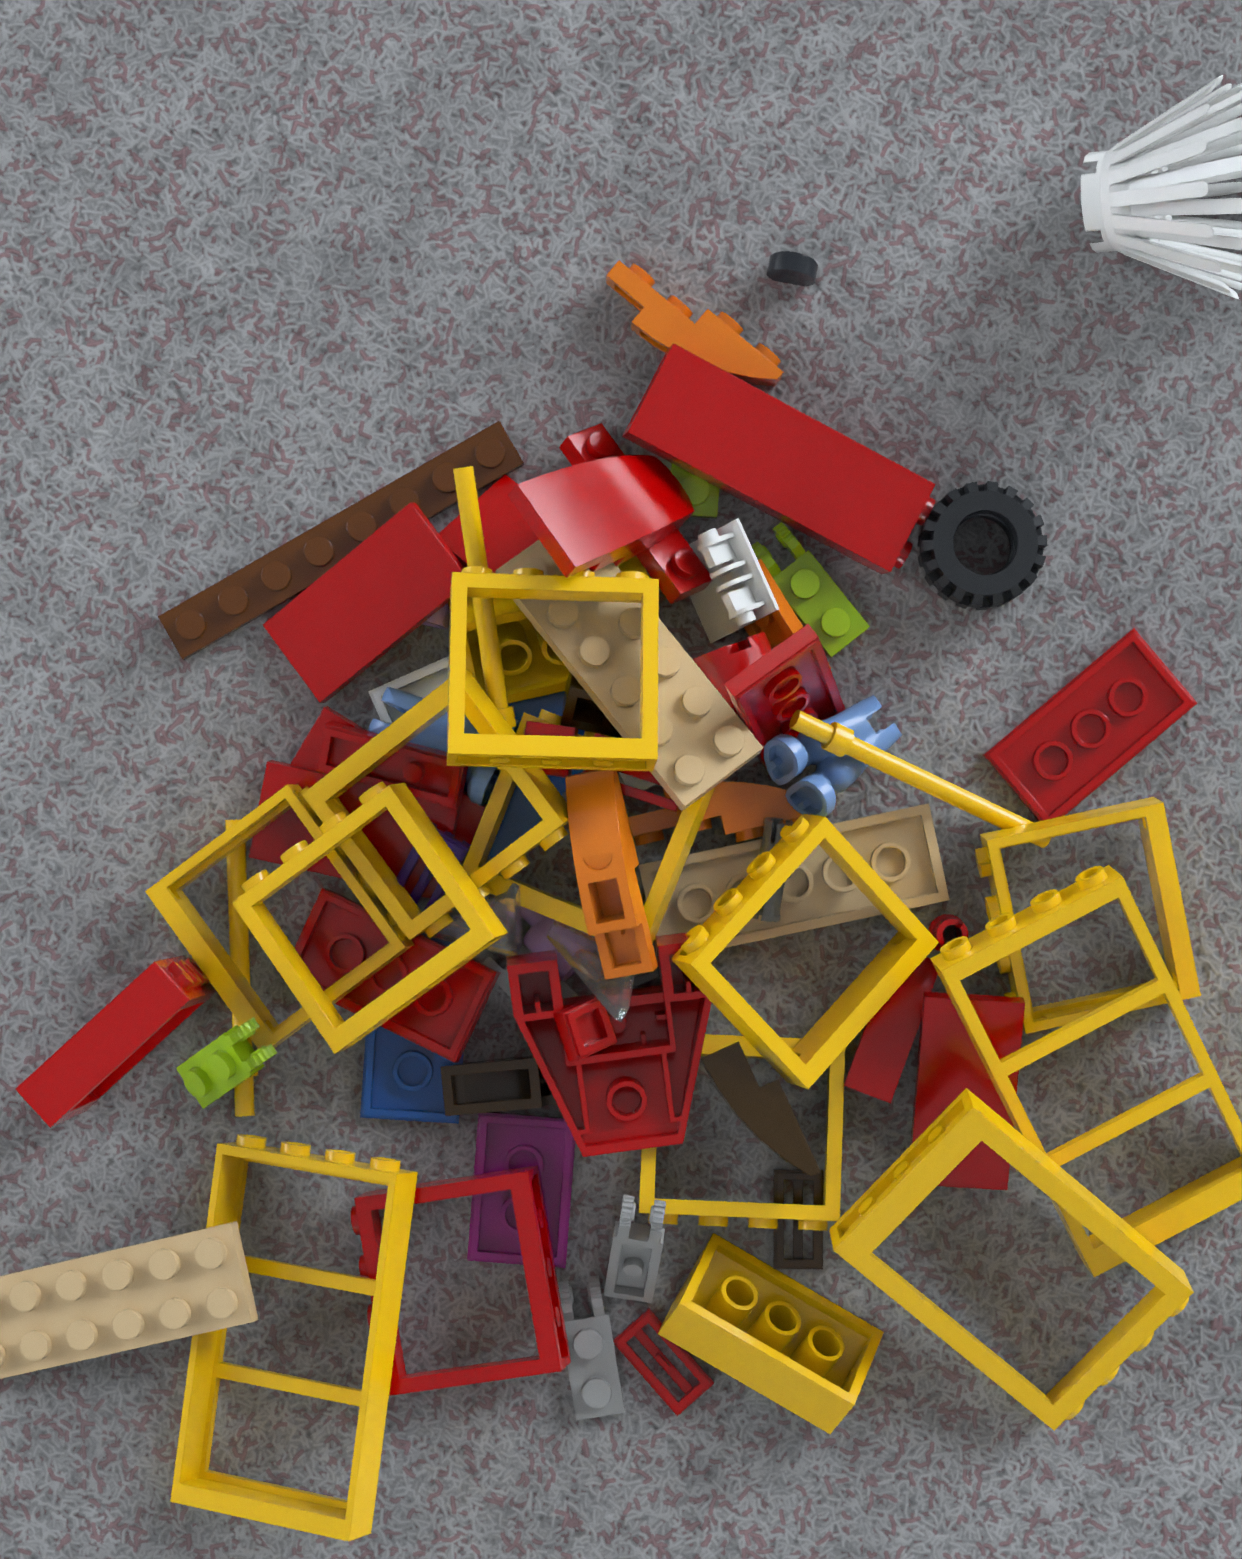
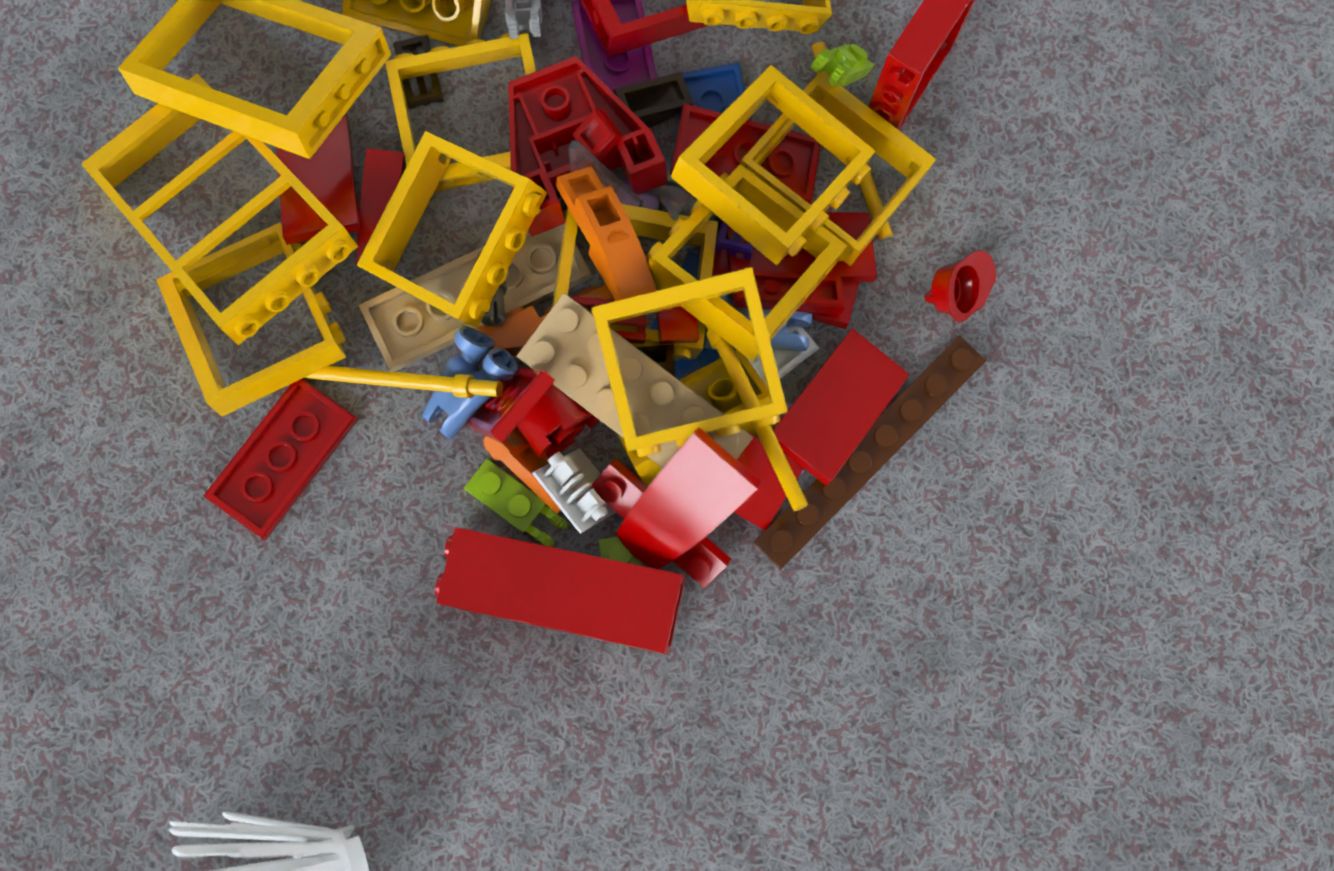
camera: 160 degrees right, 10 degrees down
(158, 718) = (963, 286): none -> red piece
(710, 338) = (639, 667): orange slope -> none
(761, 1108) = (459, 117): dark brown slope -> none
(792, 268) = (588, 747): black tile -> none
(941, 922) = (353, 282): red pin -> none
(1012, 516) = (361, 553): black tyre -> none

